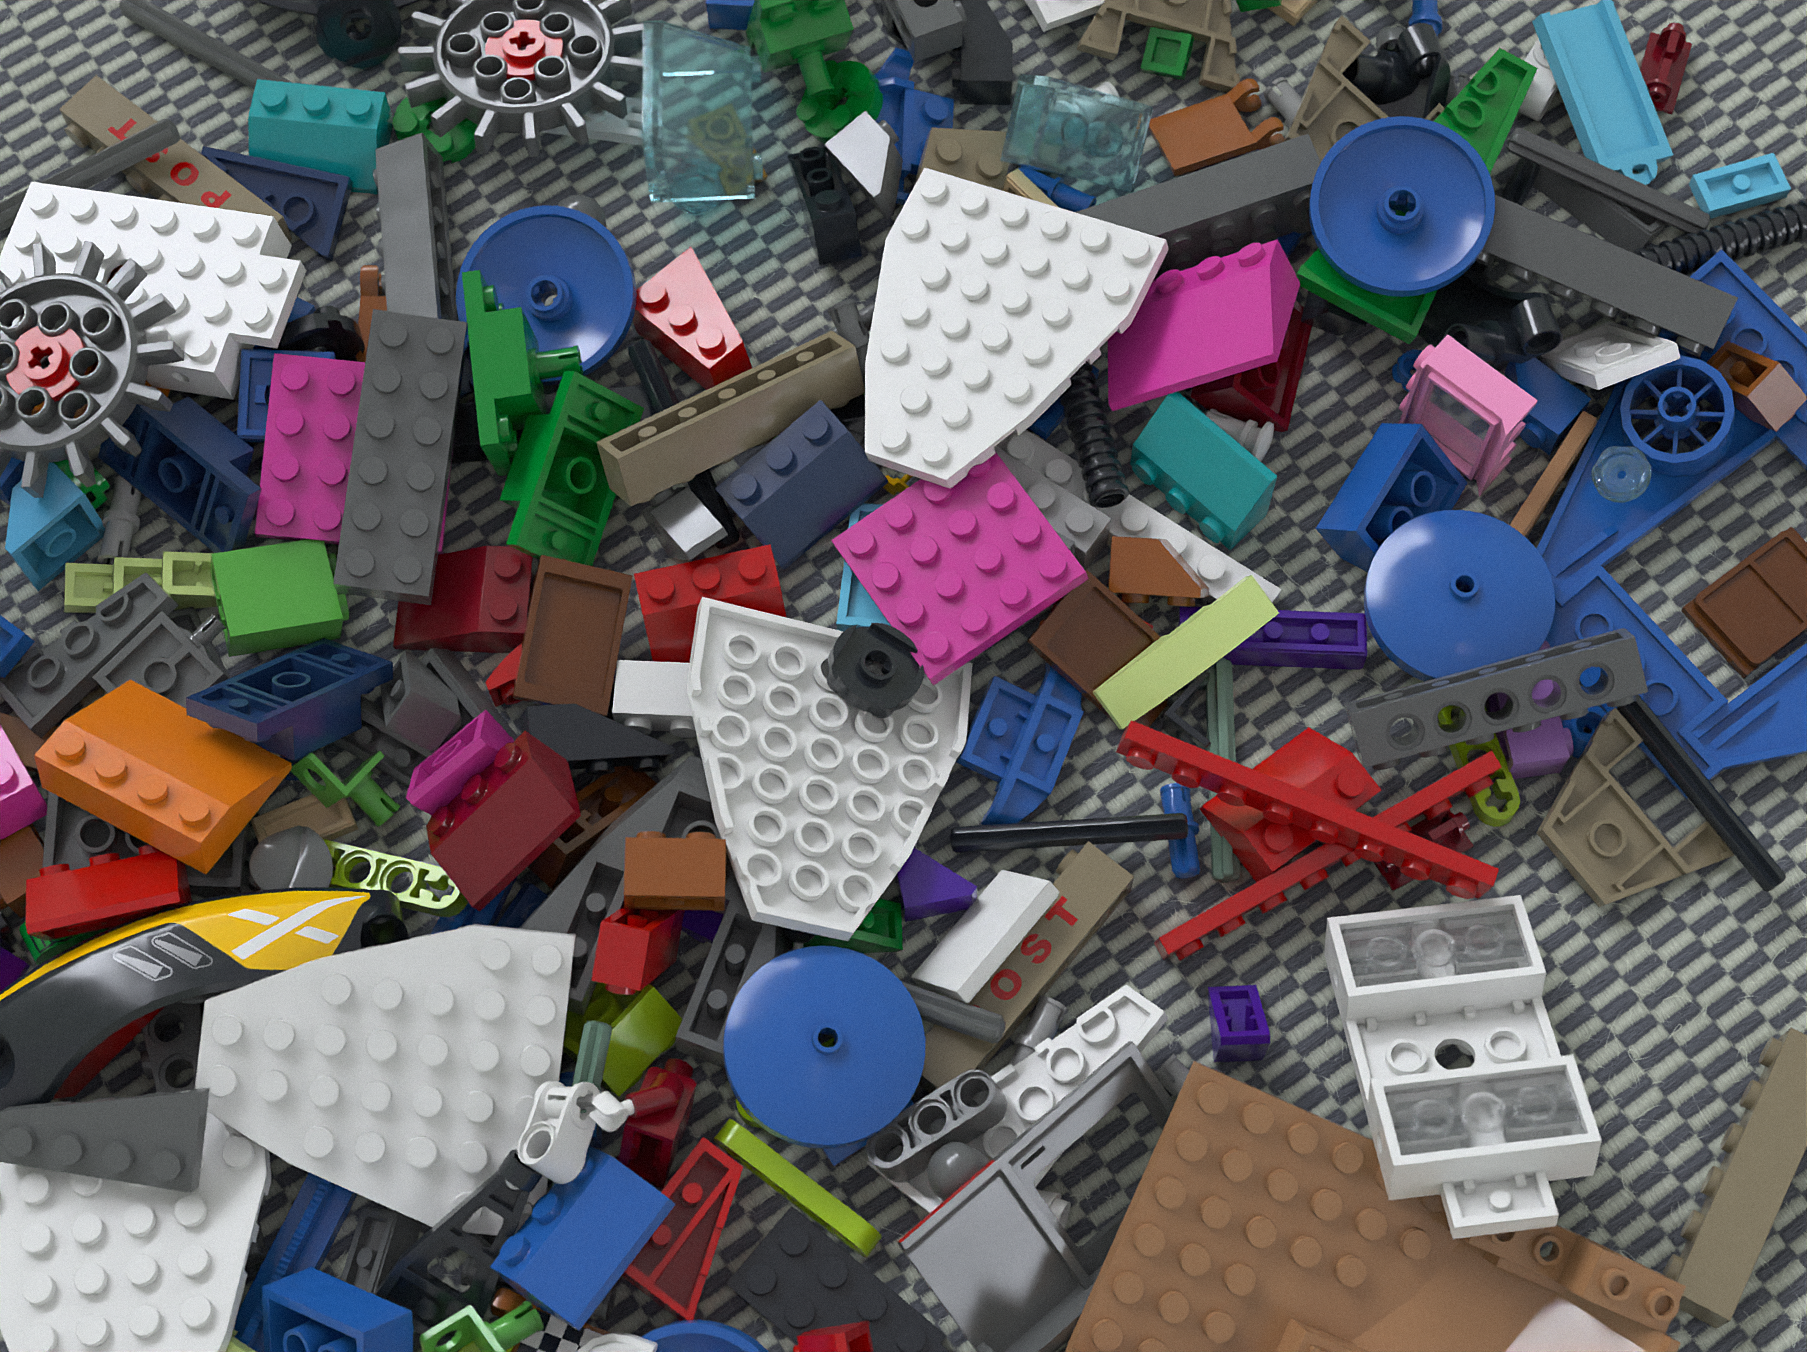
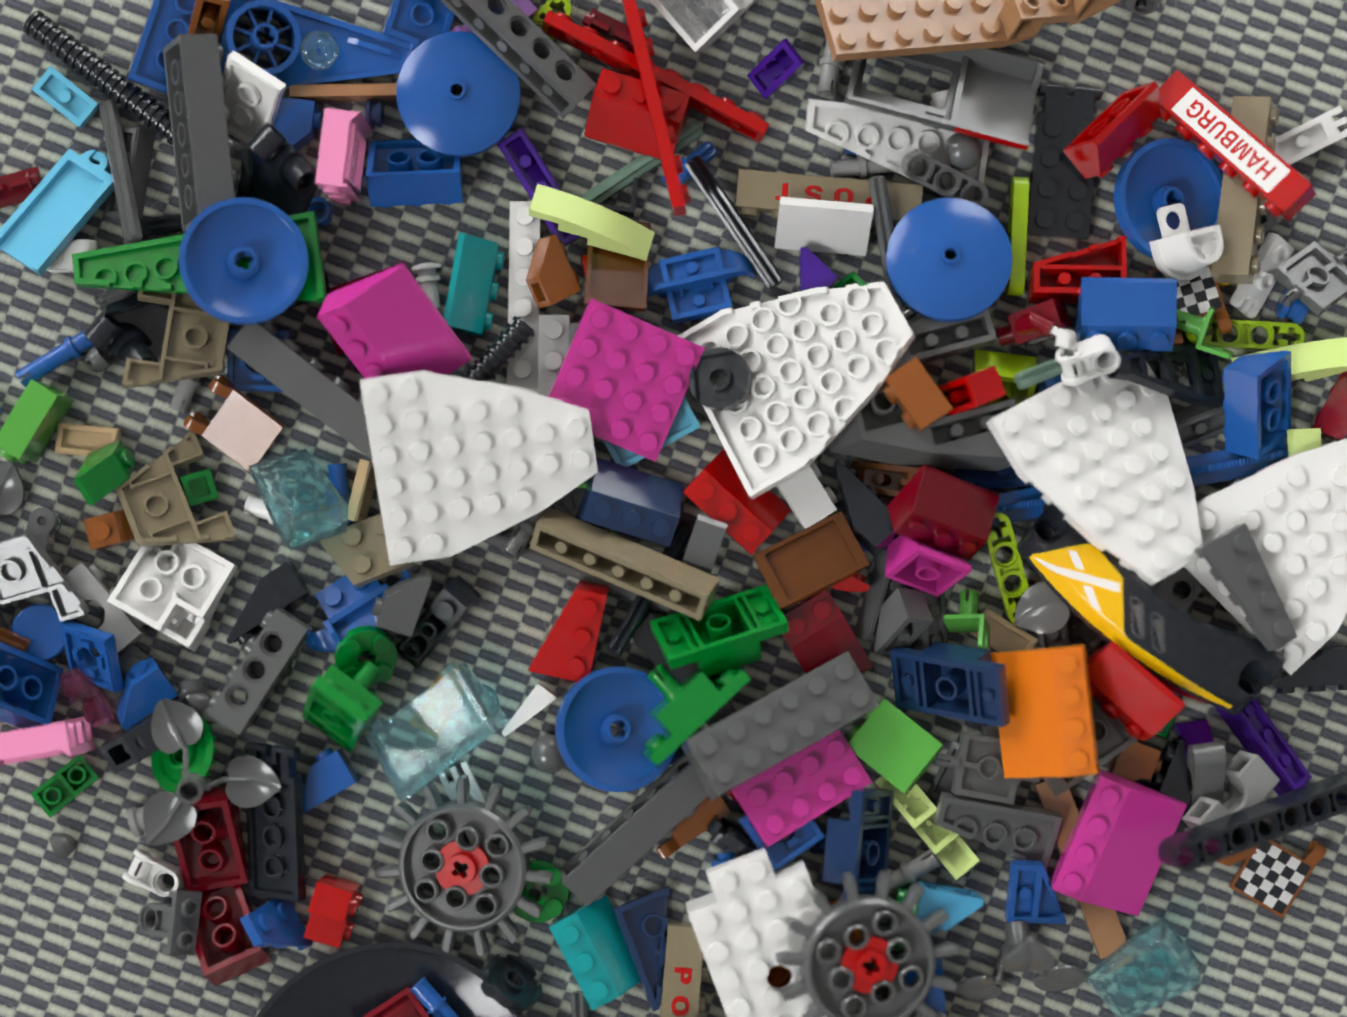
camera: 125 degrees left, 20 degrees up
(650, 247) = (534, 703): none -> white slope
(1499, 502) = (374, 113): none -> dark blue bush

